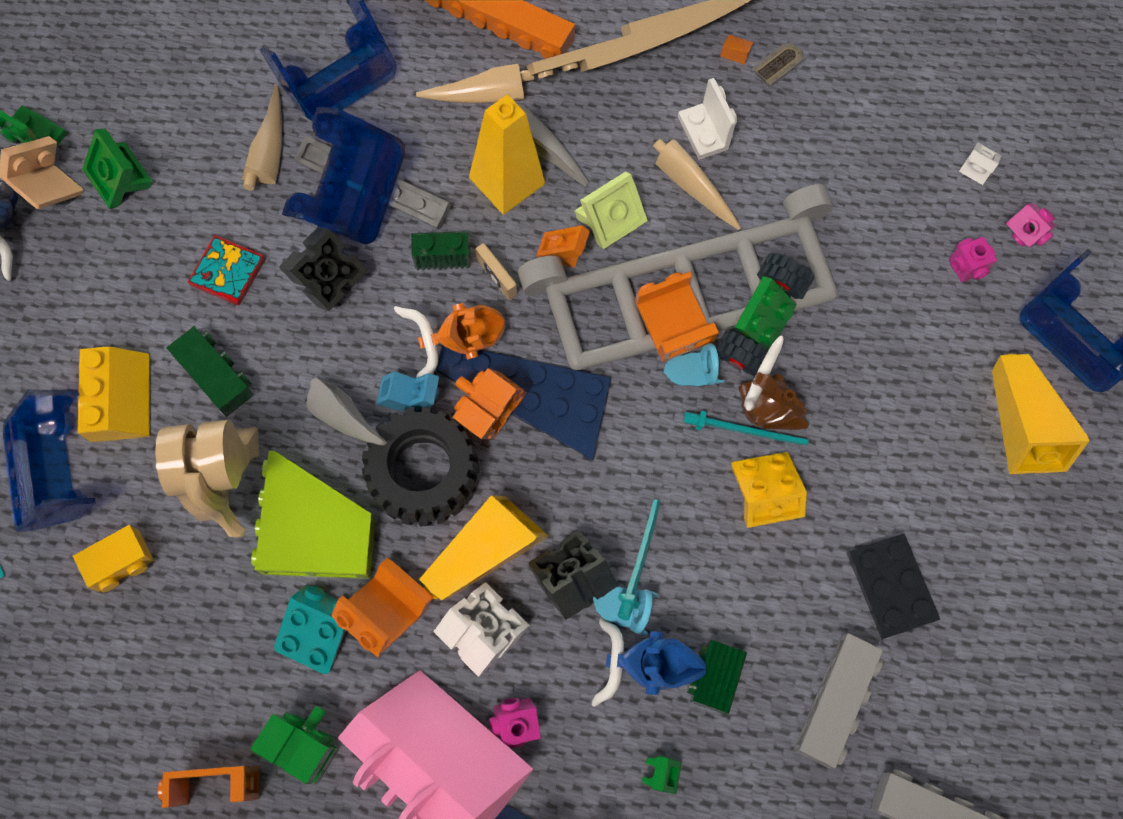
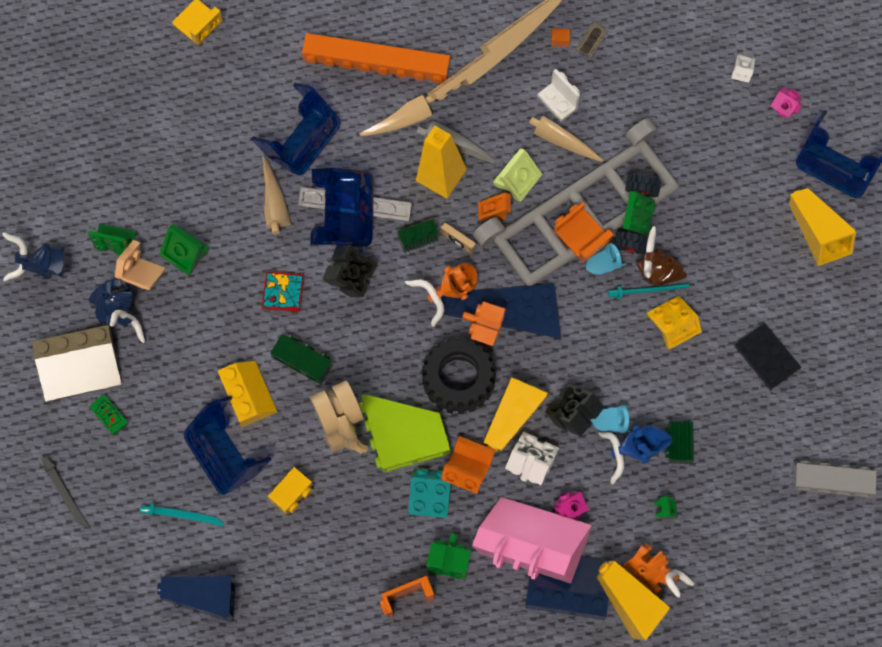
camera: 15 degrees left, 0 degrees up
(338, 411) = (394, 358): light grey piece -> none
(403, 392) = (430, 333): dark azure brick -> none
(629, 599) = (613, 414): teal sword -> none
(838, 701) = (755, 433): light grey brick -> none
(972, 259) = (756, 136): dark pink brick -> none

